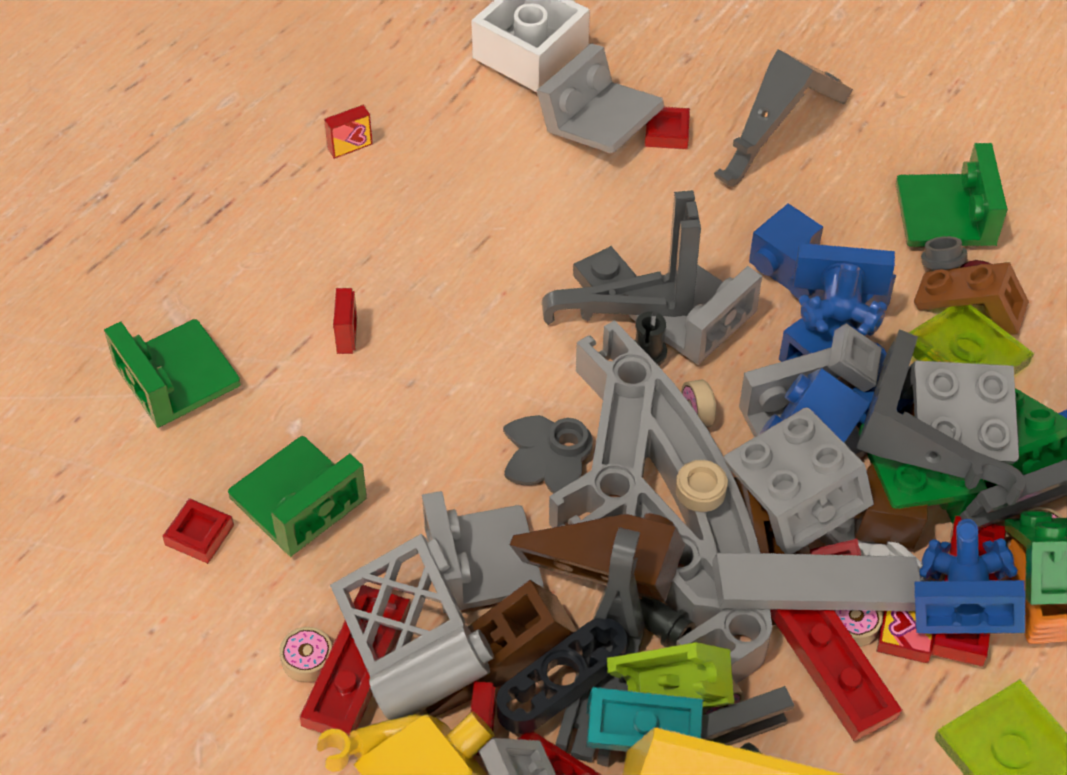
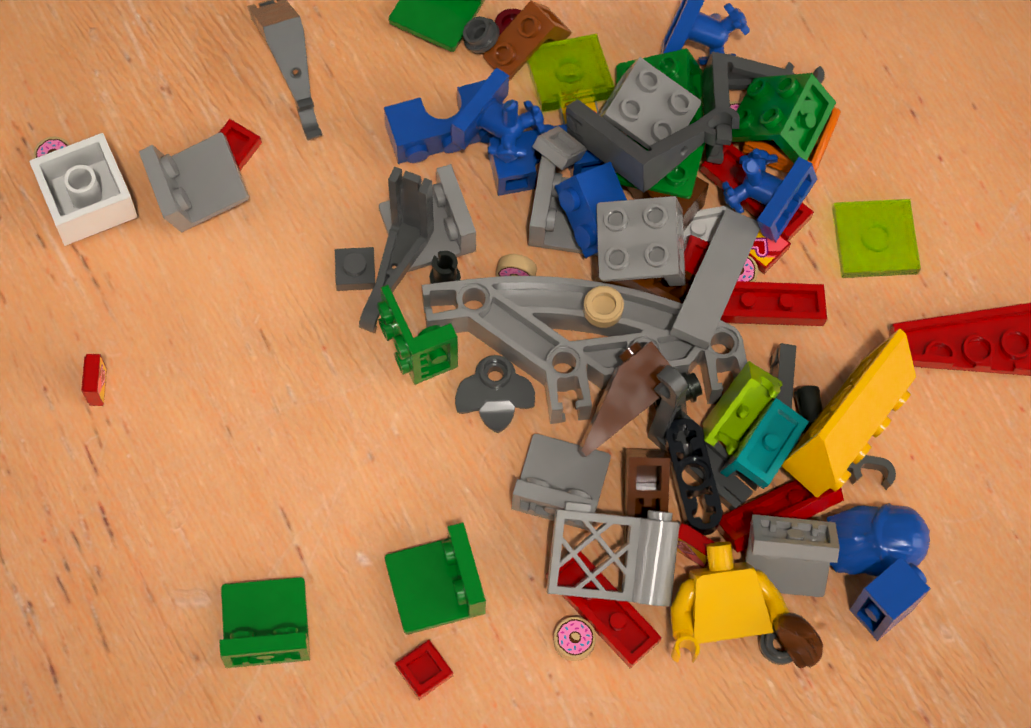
camera: 65 degrees left, 15 degrees up
(345, 321) = (294, 474): red tile -> none
(543, 342) = (427, 354): none -> green bracket

